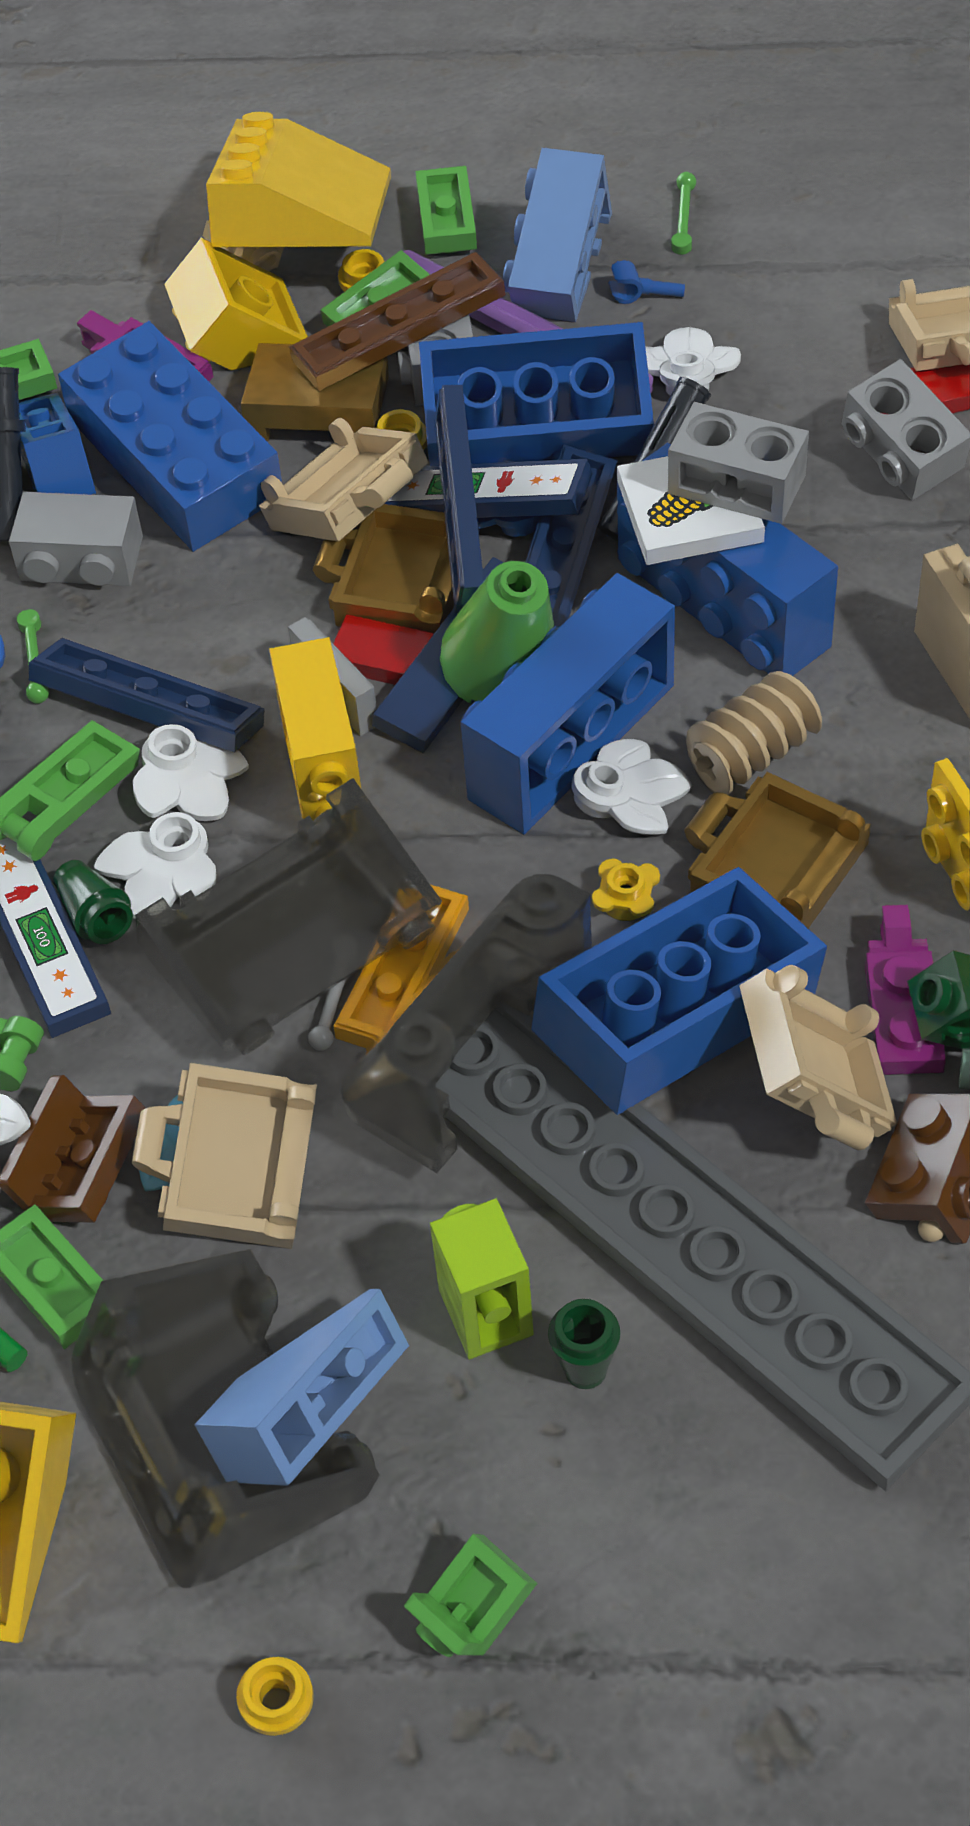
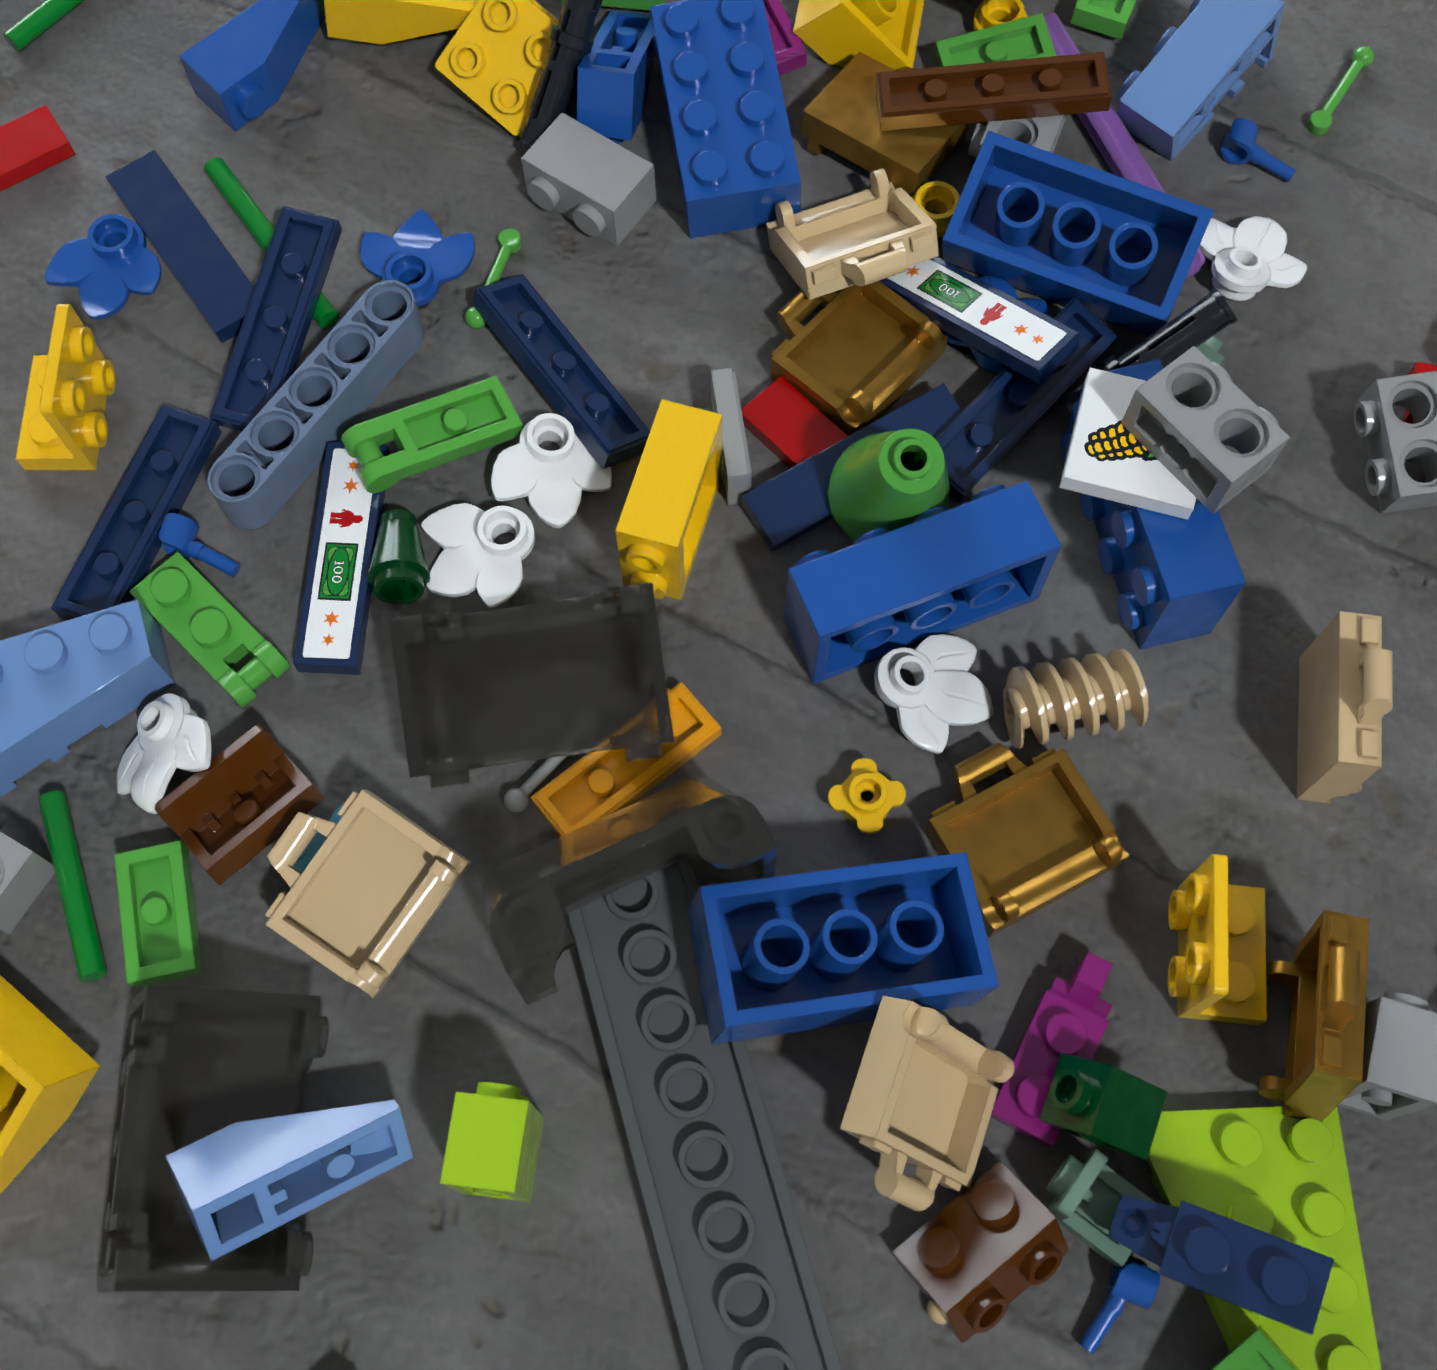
camera: 25 degrees right, 15 degrees up
(458, 495) = (934, 315): dark blue tile -> none
(584, 1341) = (527, 1258): dark green cone -> none

